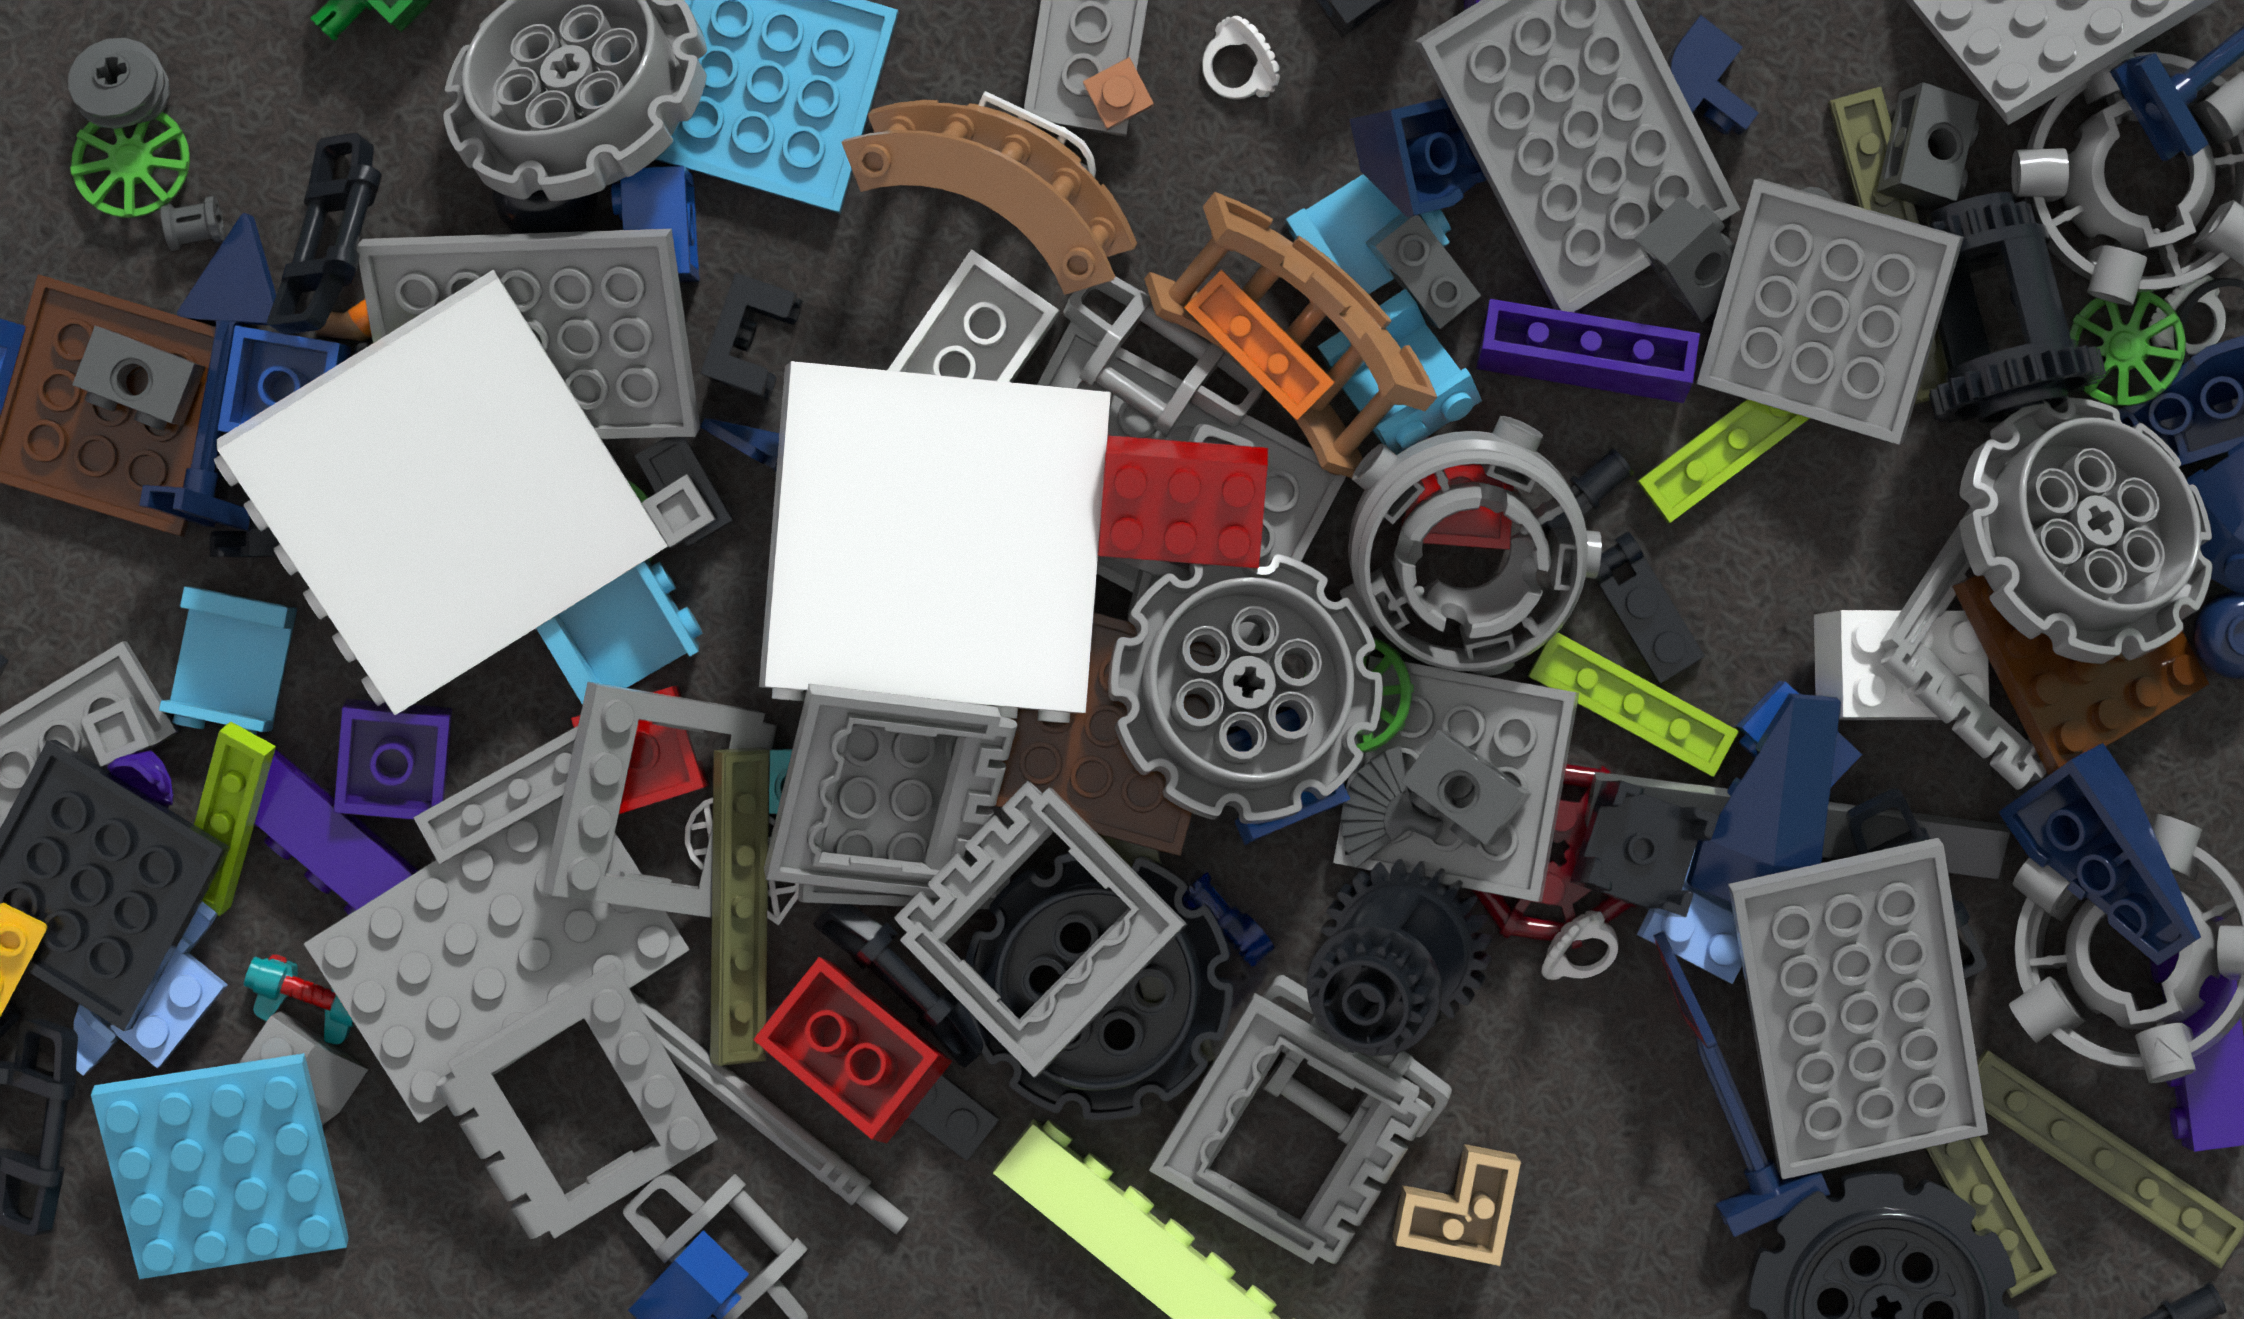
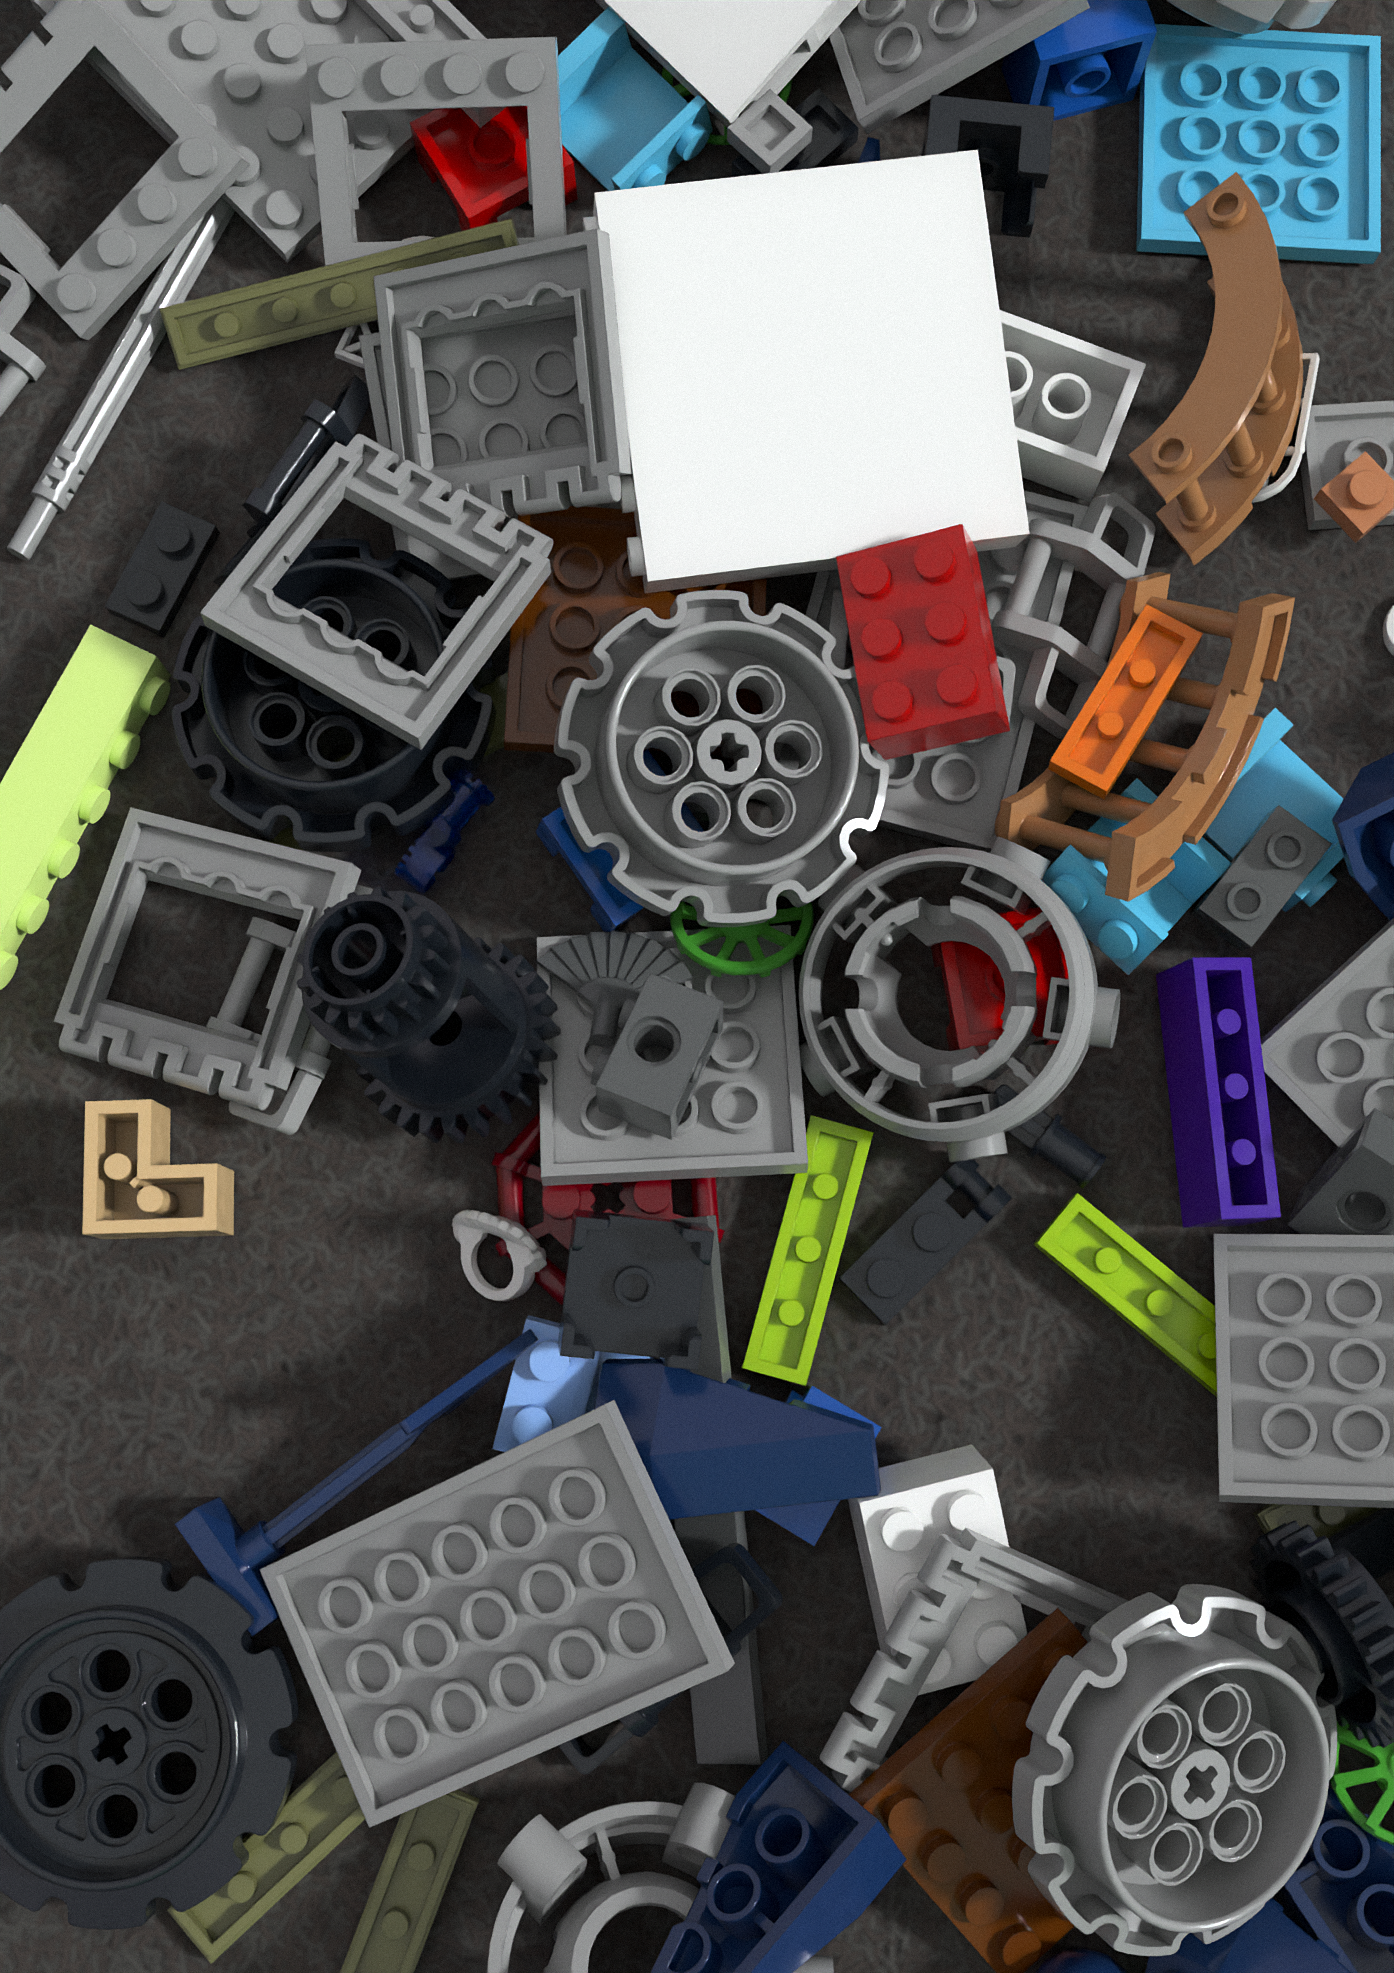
camera: 80 degrees right, 10 degrees down
(852, 1050) = (201, 439): red brick -> none

